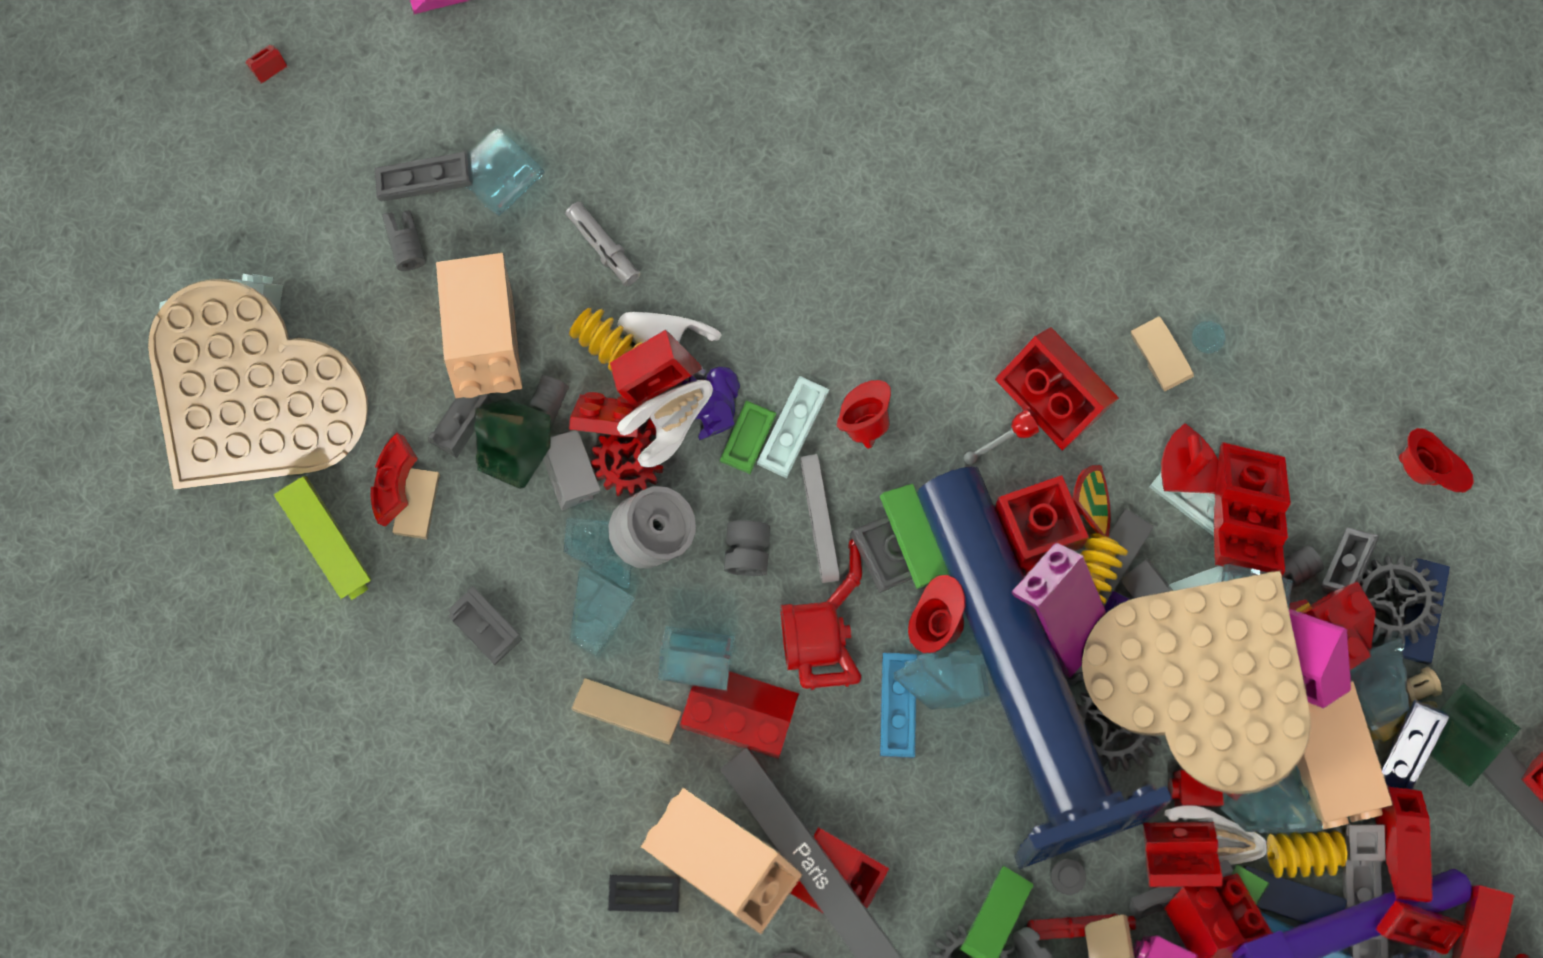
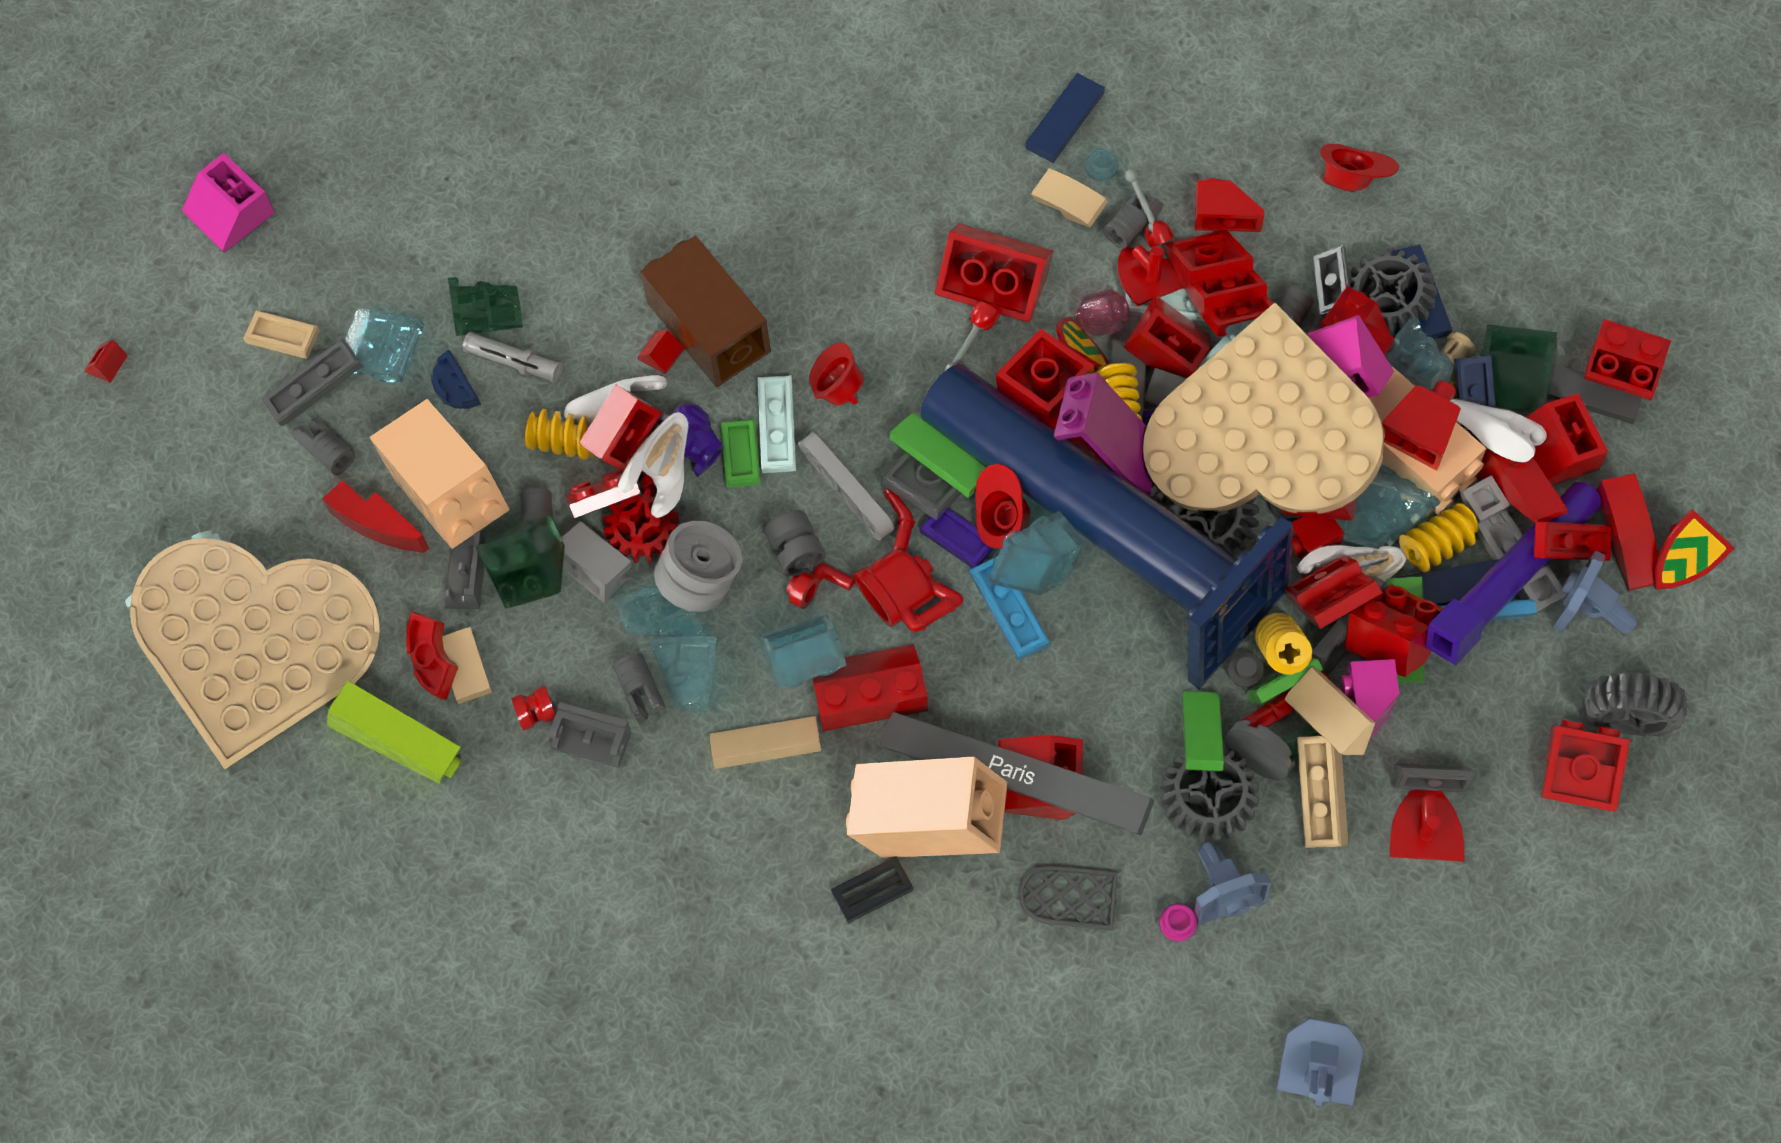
camera: 20 degrees left, 10 degrees down
(409, 329) = (373, 519): none -> red slope
(422, 116) = (281, 334): none -> tan tile
(451, 576) = (542, 706): none -> red wheel
(539, 239) = (451, 383): none -> dark blue tile
(549, 598) = (637, 682): none -> dark grey hinge
(603, 183) = (484, 307): none -> clear green slope
(731, 306) = (661, 351): none -> red slope
(734, 591) = (804, 587): none -> red plate
(785, 292) = (705, 310): none -> reddish brown brick
(889, 617) = (957, 538): none -> dark purple tile
(1093, 907) = (1278, 684): none -> bright green tile
(1111, 877) = (1283, 643): none -> yellow piece
(1130, 480) = (1103, 312): none -> clear pink head
(1173, 538) = (1168, 340): none -> red slope
(1202, 273) = (1065, 118): none -> dark blue tile
(1203, 404) = (1130, 221): none -> dark grey hinge
(1221, 428) = (1157, 231): none -> hinge
(1295, 437) = (1225, 207): none -> red slope
(1349, 756) = (1423, 423): none -> red torso
(1410, 784) = (1501, 430): none -> white animal
(1466, 823) = (1571, 440): none -> red slope

